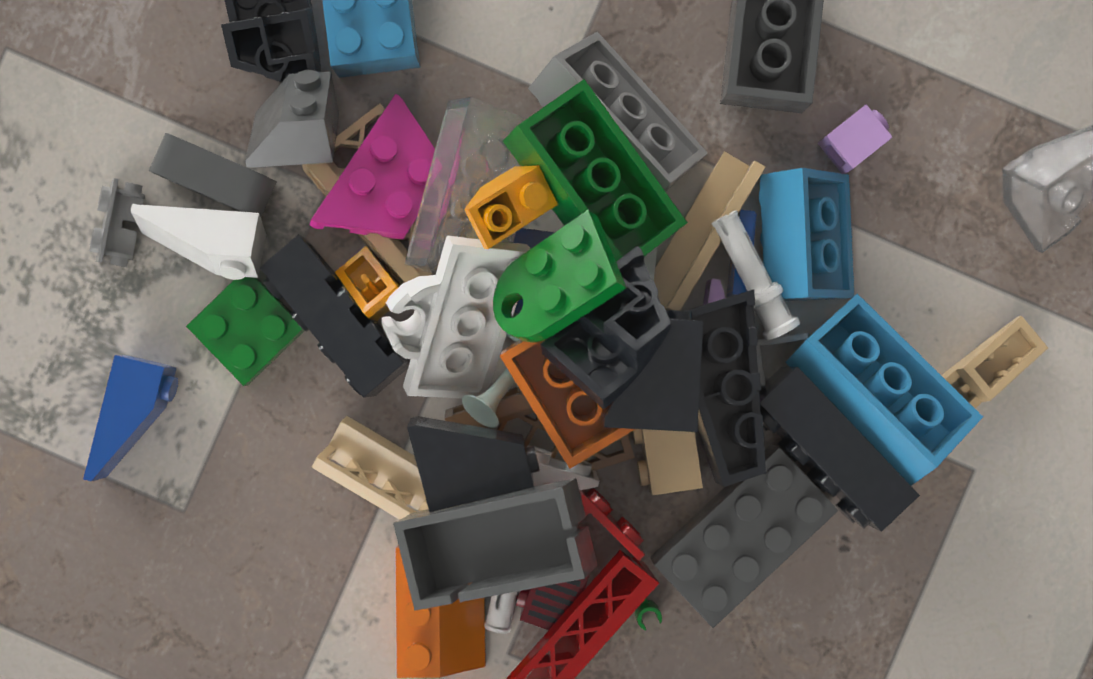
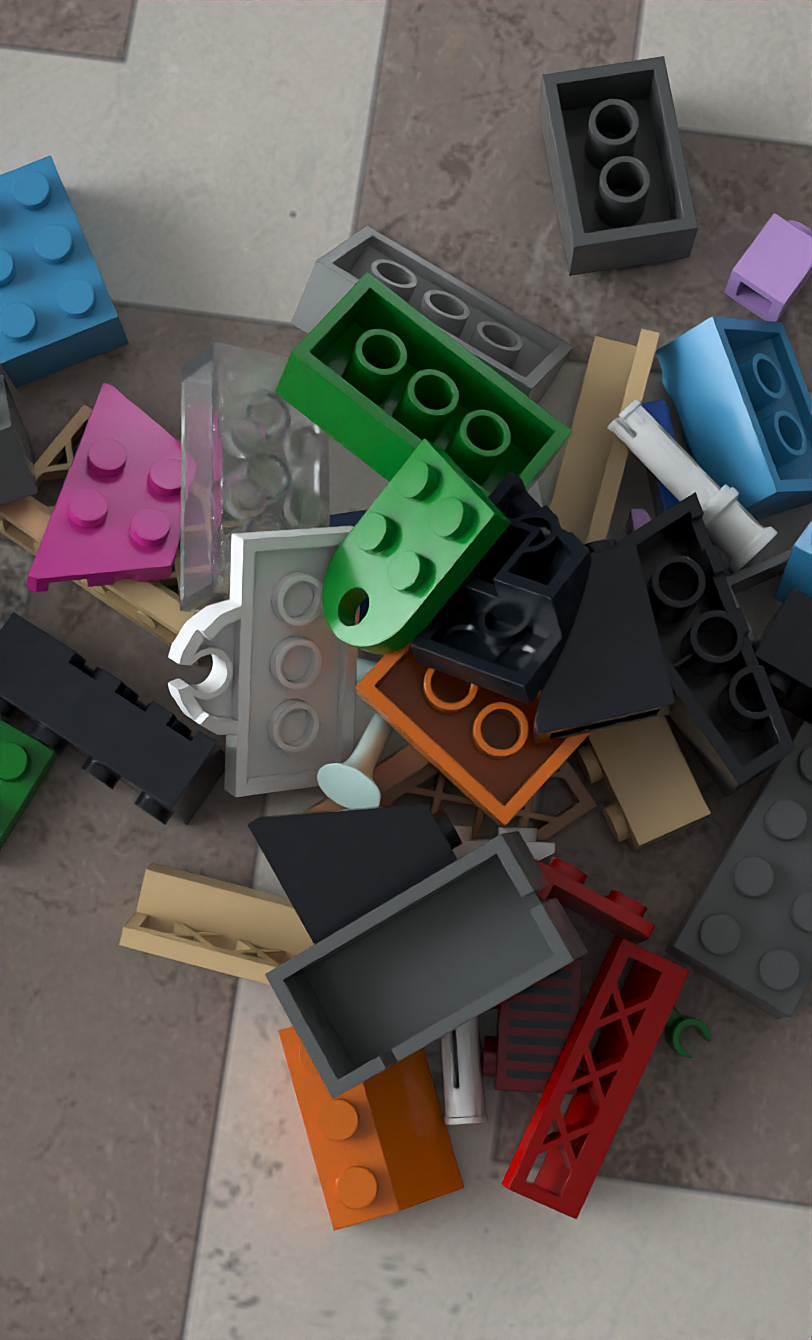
camera: 15 degrees left, 10 degrees down
(368, 283) = (137, 658): light orange slope -> none
(509, 203) = (311, 468): light orange slope -> none

